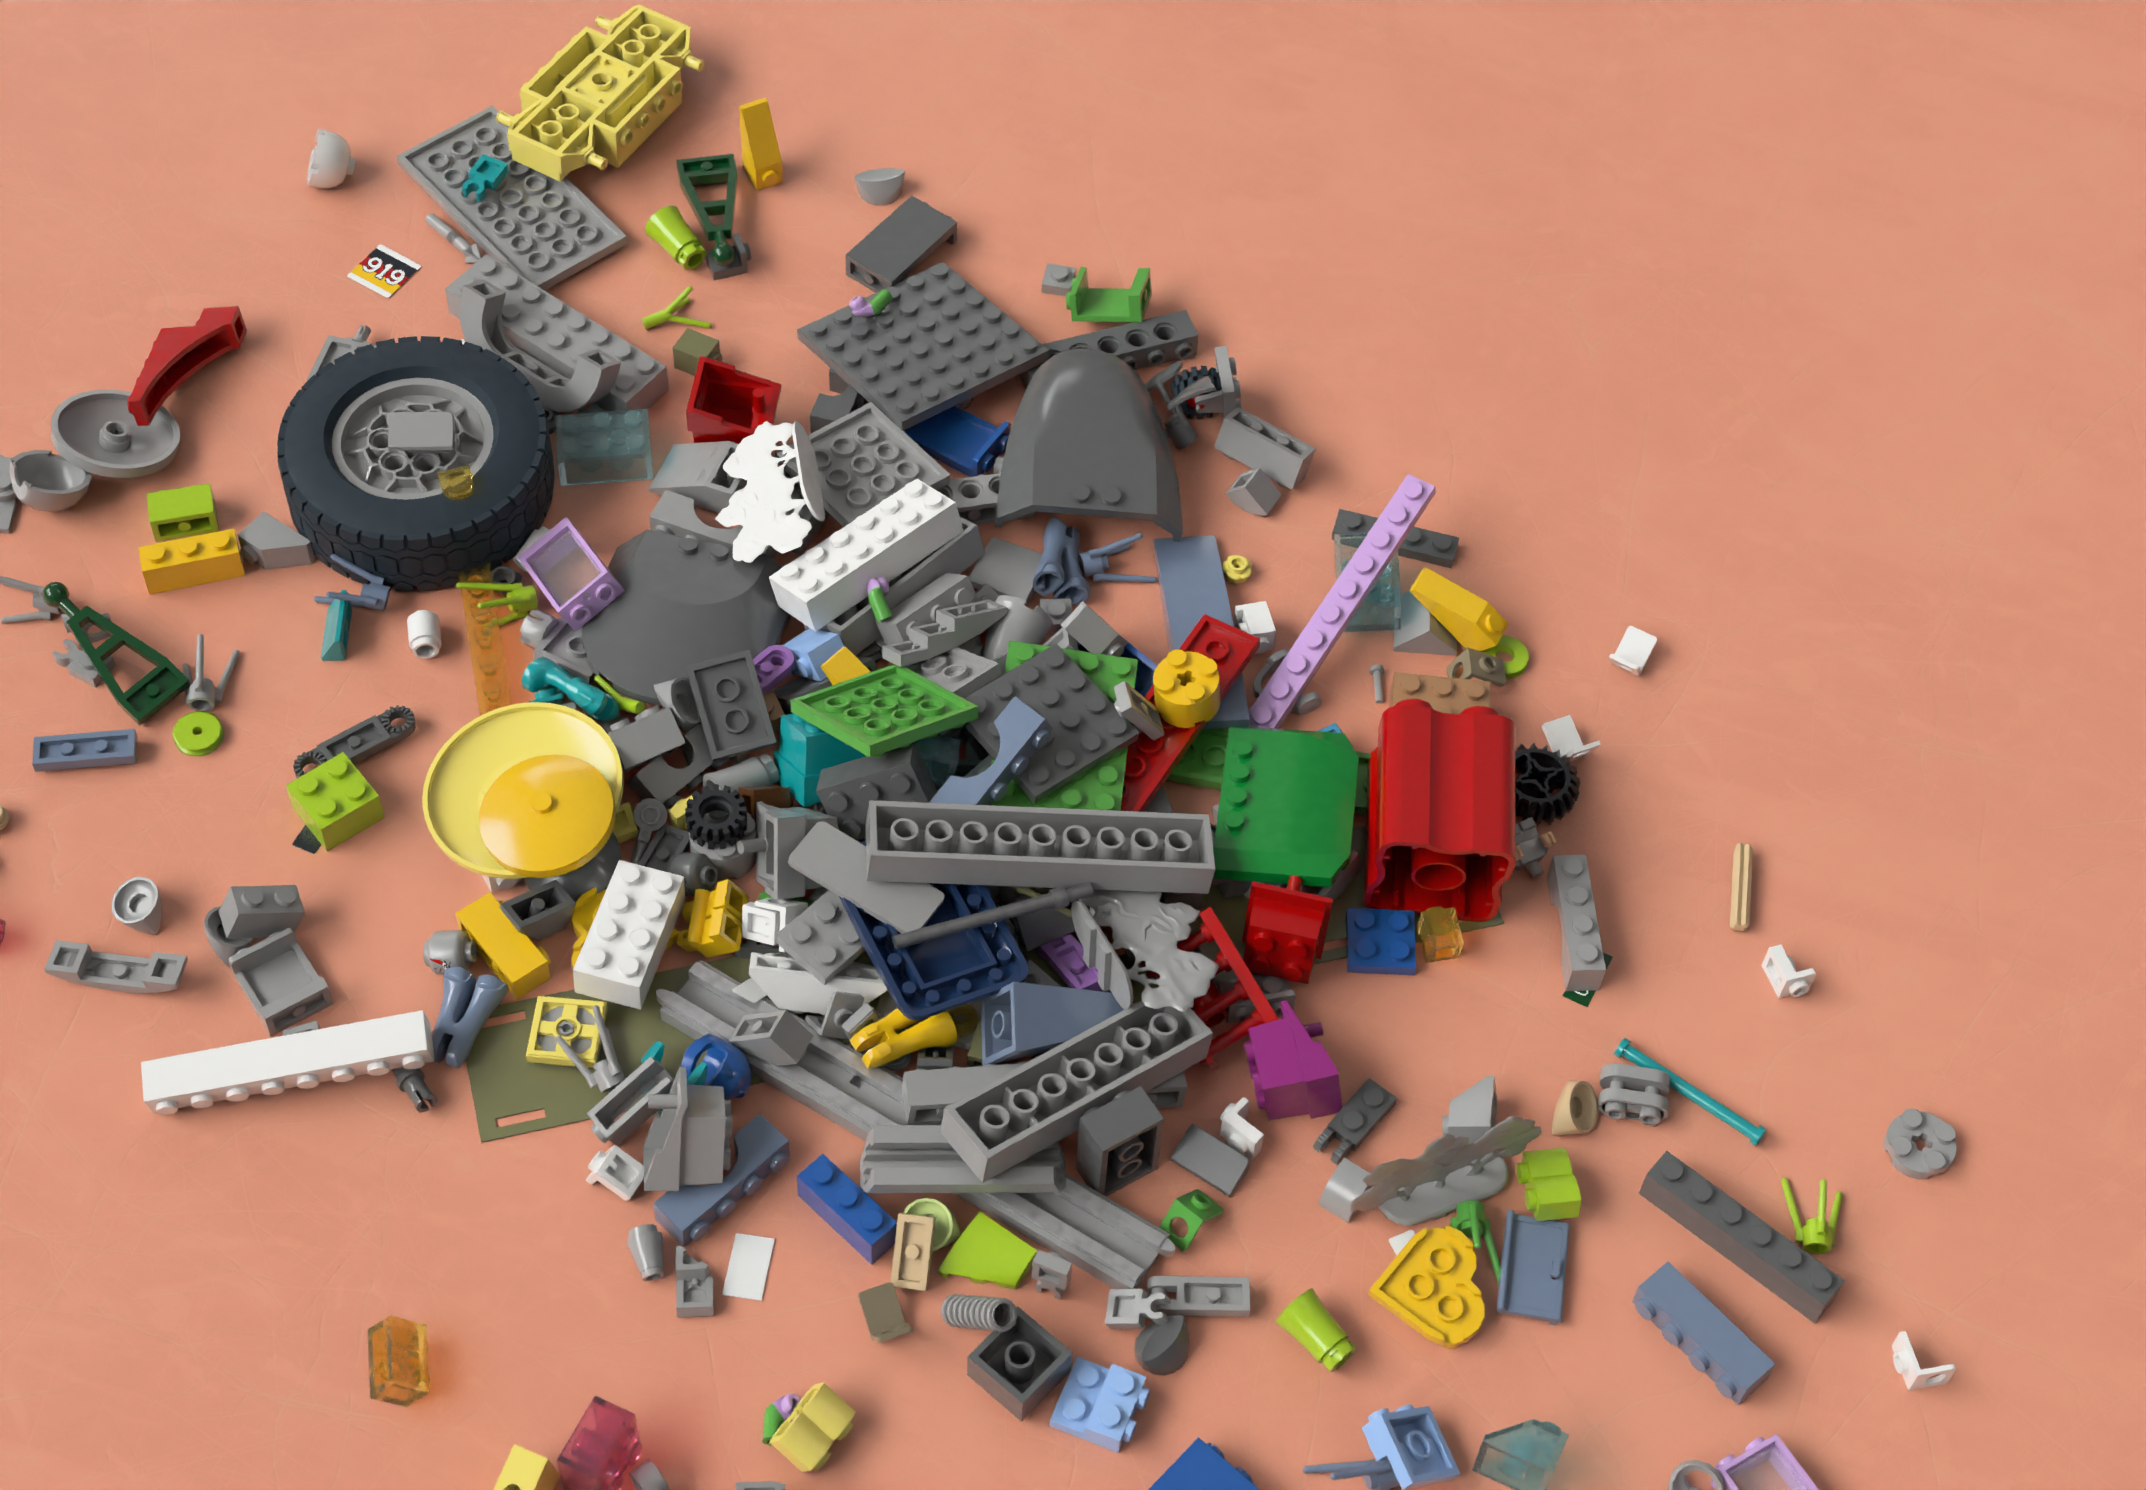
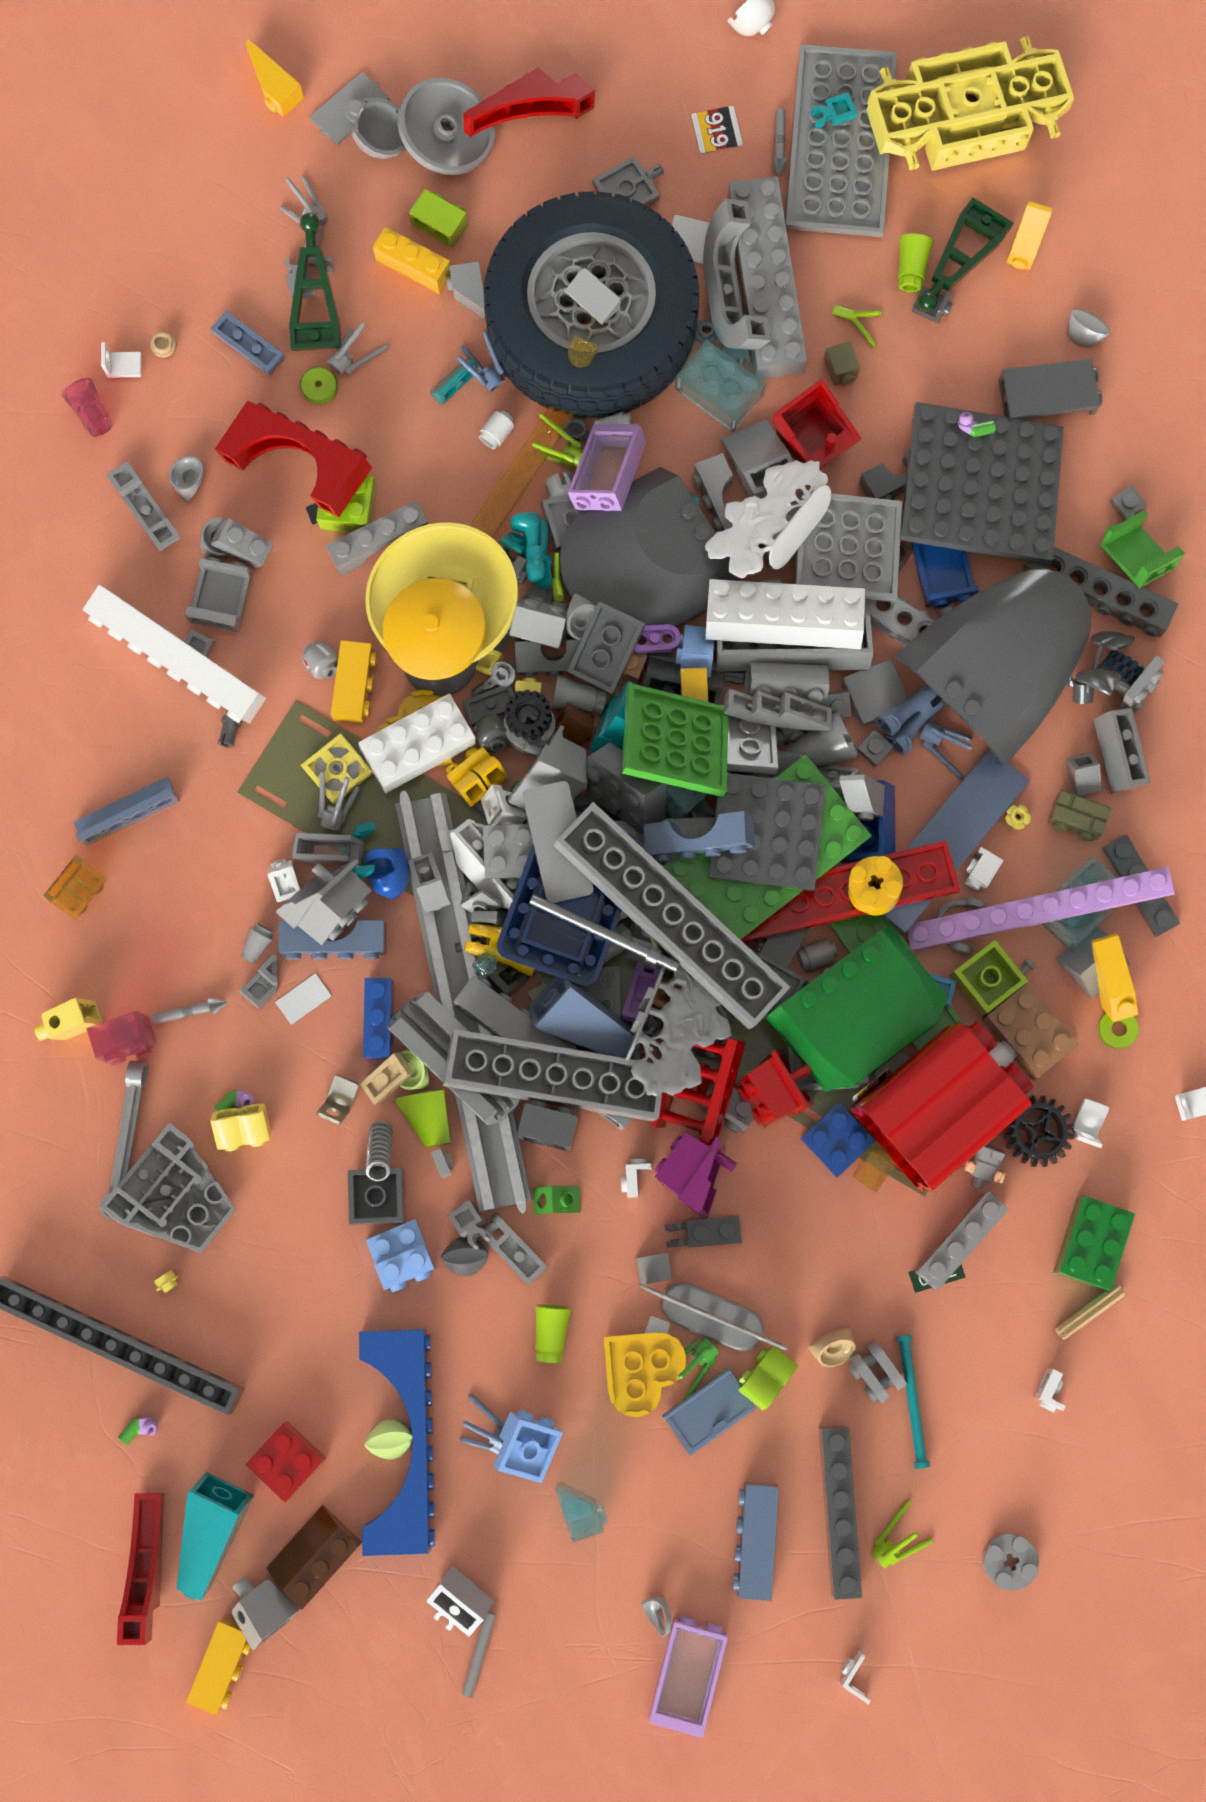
camera: 50 degrees right, 25 degrees up
(180, 805) = (260, 431): none -> red arch
(361, 740) = (403, 473): dark grey plate -> none
(379, 1253) = (125, 811): none -> sand blue fence
(385, 830) = (356, 547): none -> light grey arch
(453, 1030) = (276, 713): sand blue piece -> none
(540, 910) = (382, 681): dark grey slope -> none
(661, 1350) = (212, 1005): none -> light grey piece
(876, 589) = (758, 650): bright green arm -> none
(904, 1056) = (484, 965): none -> clear light blue plate
(1138, 710) = (828, 875): light grey plate -> none
(1195, 800) = (817, 954): none -> light grey brick
(1211, 1160) = (600, 1178): slope -> none
(1285, 524) = (1079, 815): none -> olive brick
(1357, 697) = (988, 978): none -> lime brick
(1361, 862) = (871, 1086): none -> sticker
(1472, 1111) = (768, 1298): light grey slope -> none
(1479, 666) = (1088, 1024): dark tan bracket -> none
(1681, 827) = (1094, 1243): none -> green brick

